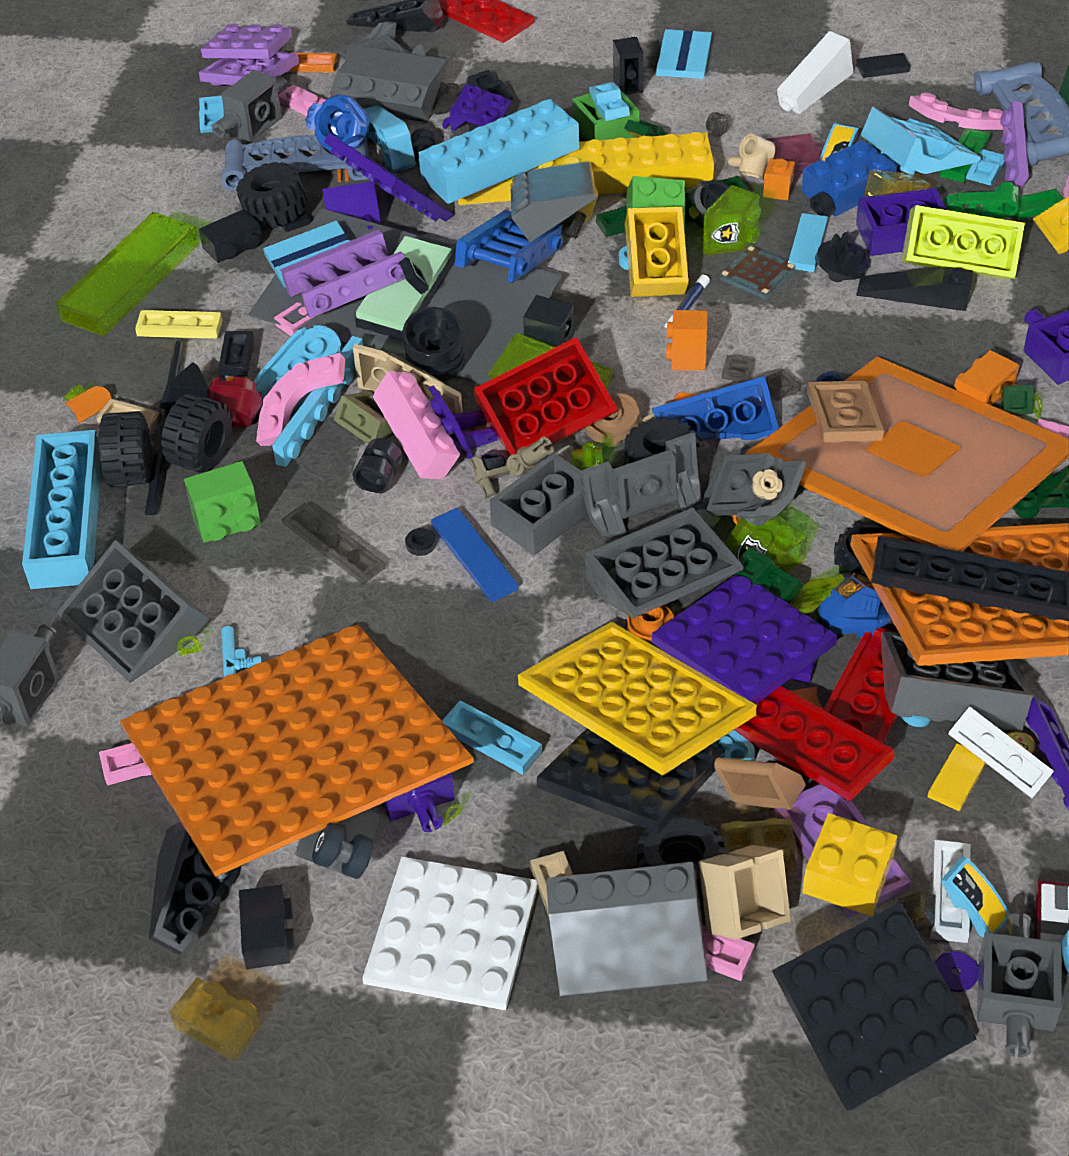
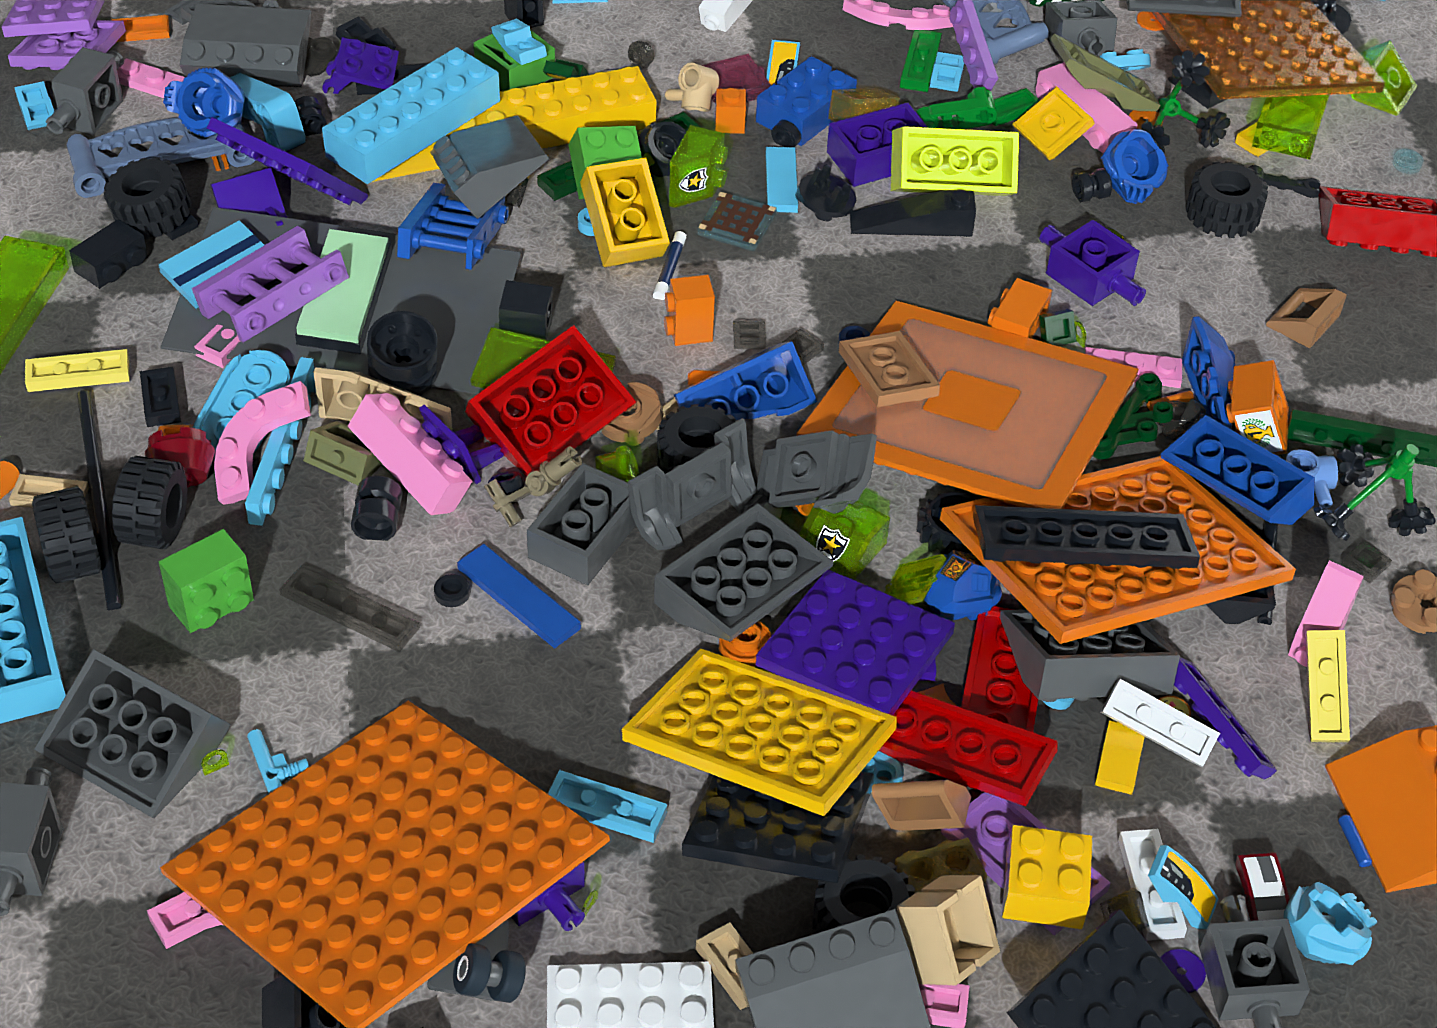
camera: 20 degrees left, 0 degrees up
(187, 381) = (115, 449): black slope -> none
(414, 275) = (357, 275): black tile -> none
(759, 487) = (831, 469): tan plate -> none
(763, 571) = (854, 565): dark green slope -> none
(915, 144) = (867, 54): medium azure piece -> none

